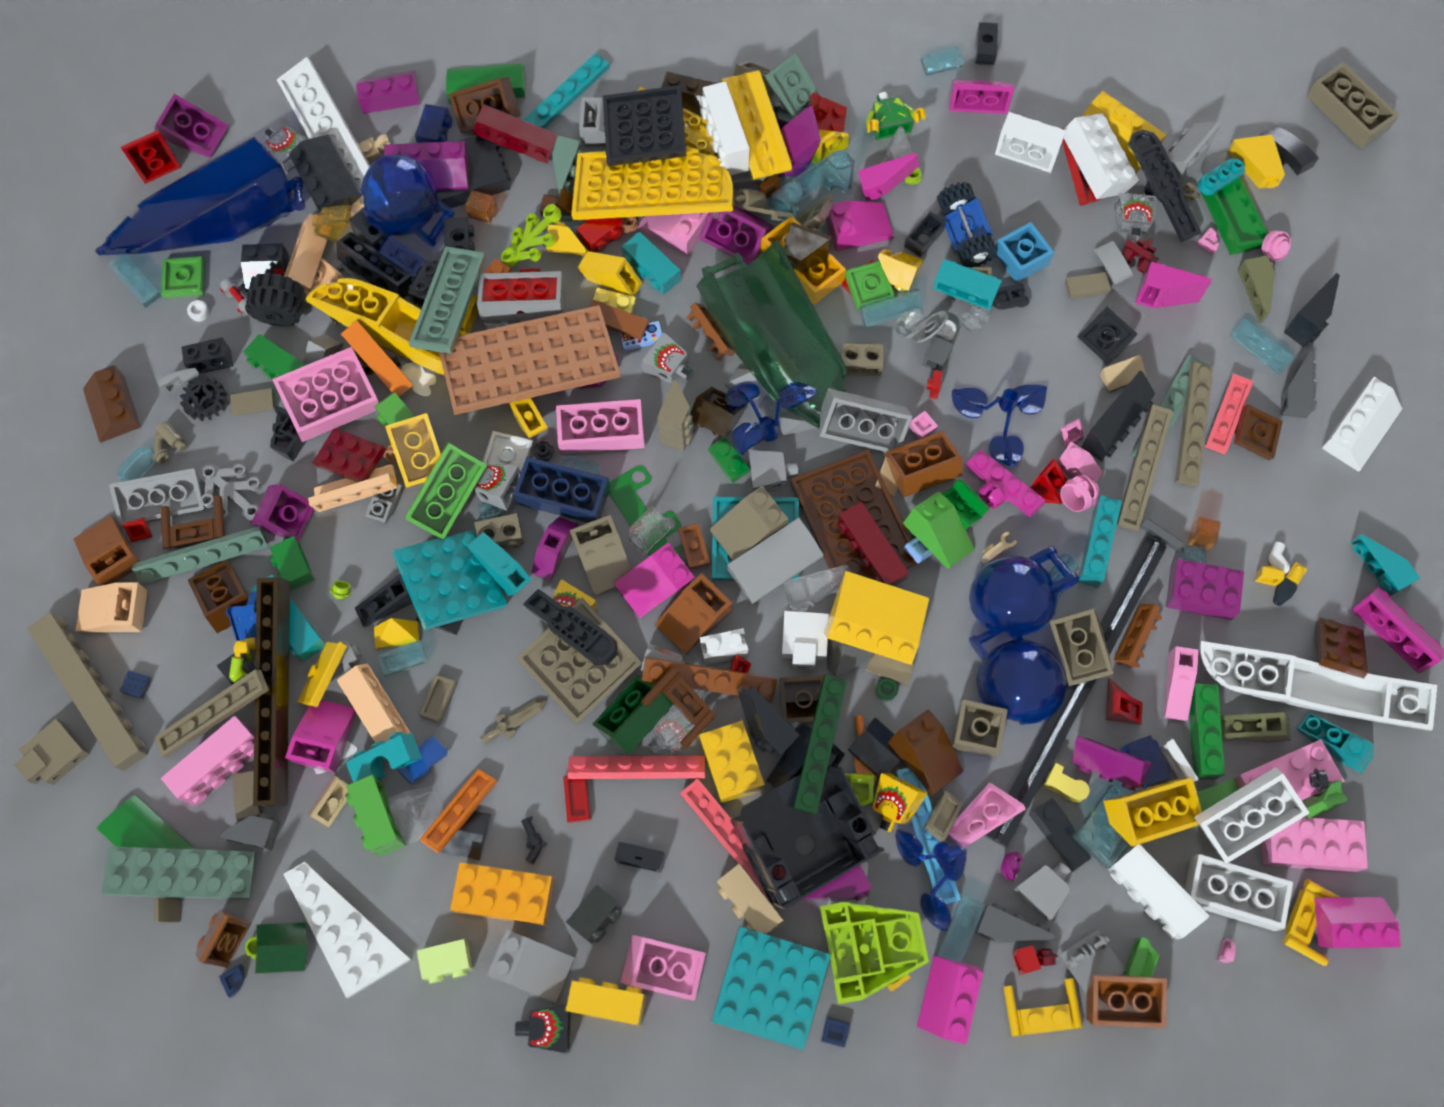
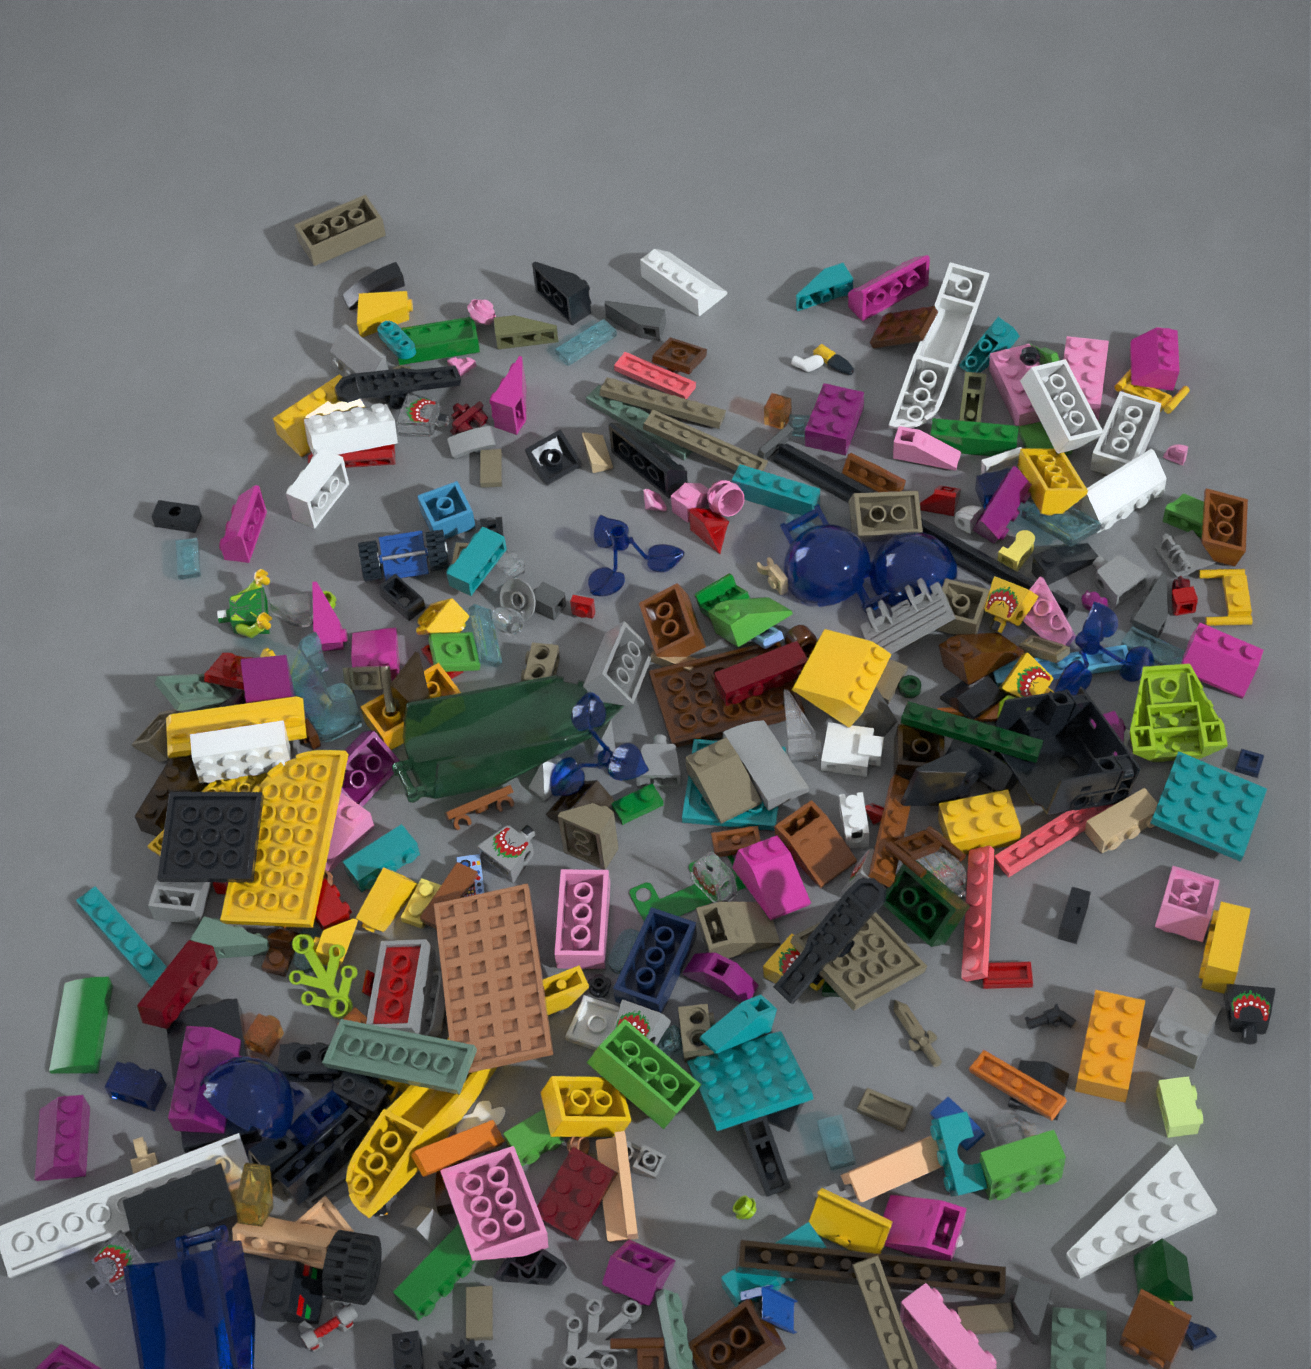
camera: 80 degrees left, 15 degrees down
(239, 663) = (836, 1311): torso -> none
(291, 562) = (704, 1261): green piece -> none
(330, 802) = (995, 1227): tan slope -> none
(396, 633) = (804, 1152): yellow slope -> none
(493, 93) = (119, 1021): reddish brown slope -> none
(595, 914) = (1135, 954): pearl dark grey brick -> none
(756, 201) = (328, 743): dark tan door -> none
(922, 581) = (804, 636): none -> reddish brown head
(923, 425) = (630, 618): bright pink plate -> none
(954, 678) = (909, 621): none -> light grey hinge
(992, 775) = (1008, 603): none -> yellow torso
(1003, 485) = (706, 561): dark pink plate -> none
(1101, 732) = (968, 517): none -> white piece
(1269, 575) = (825, 370): yellow plate -> none

